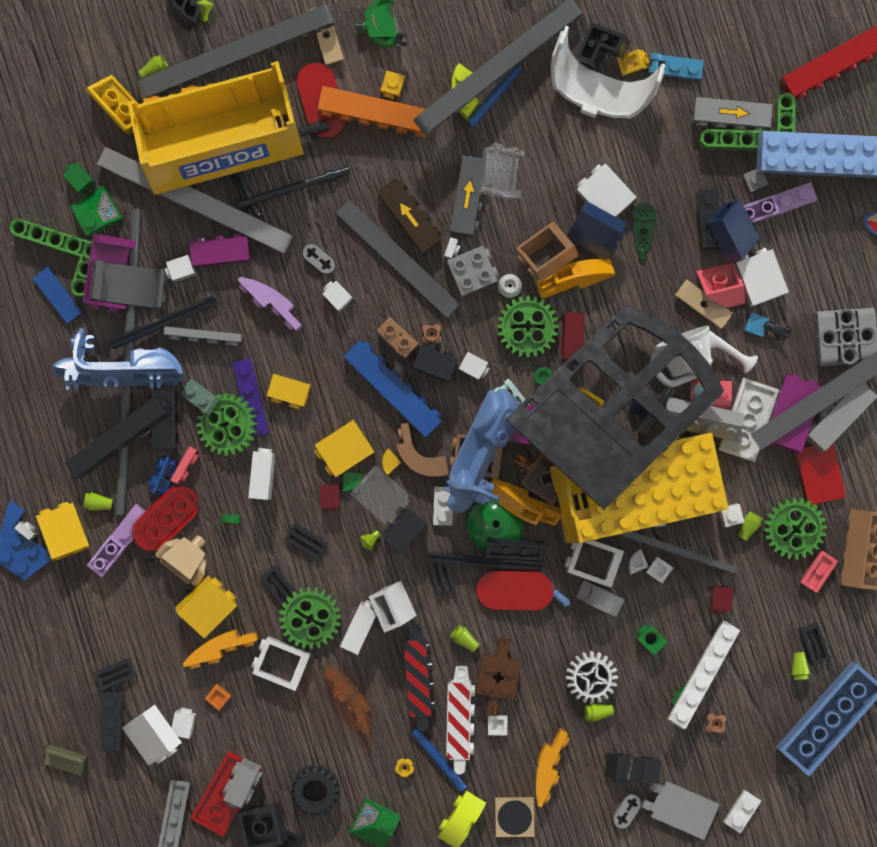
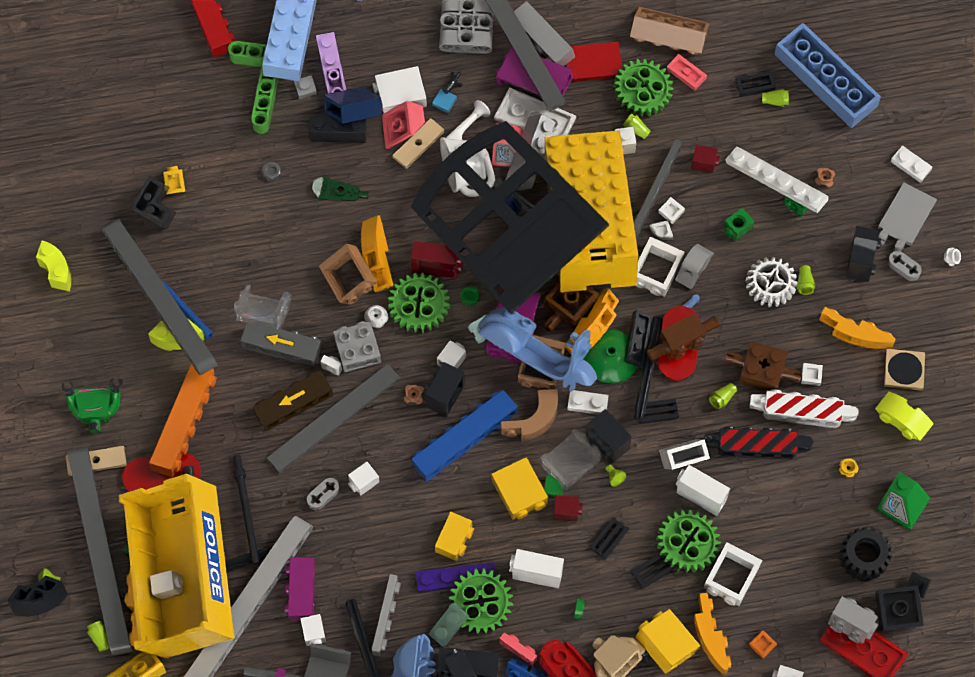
camera: 80 degrees left, 20 degrees down
(204, 122) = (166, 584): none -> white brick
(266, 296) = (353, 547): lavender slope -> none
(346, 689) = (766, 512): clear orange slope -> none
(389, 461) = (537, 447): yellow tile -> none
(392, 85) = (158, 404): yellow bracket -> none
(404, 344) = (412, 425): medium nougat window -> none
(438, 759) = (842, 434): blue piece -> none
(514, 594) = (682, 337): none -> reddish brown brick
(597, 230) = (333, 226): dark blue brick -> none
(598, 92) = (201, 210): white piece -> none
(605, 190) = (298, 218): white brick -> none
(656, 159) = (271, 171): none -> flat silver tile
(677, 66) = (185, 143): dark azure plate -> none
(731, 114) = (239, 99): light grey brick -> none

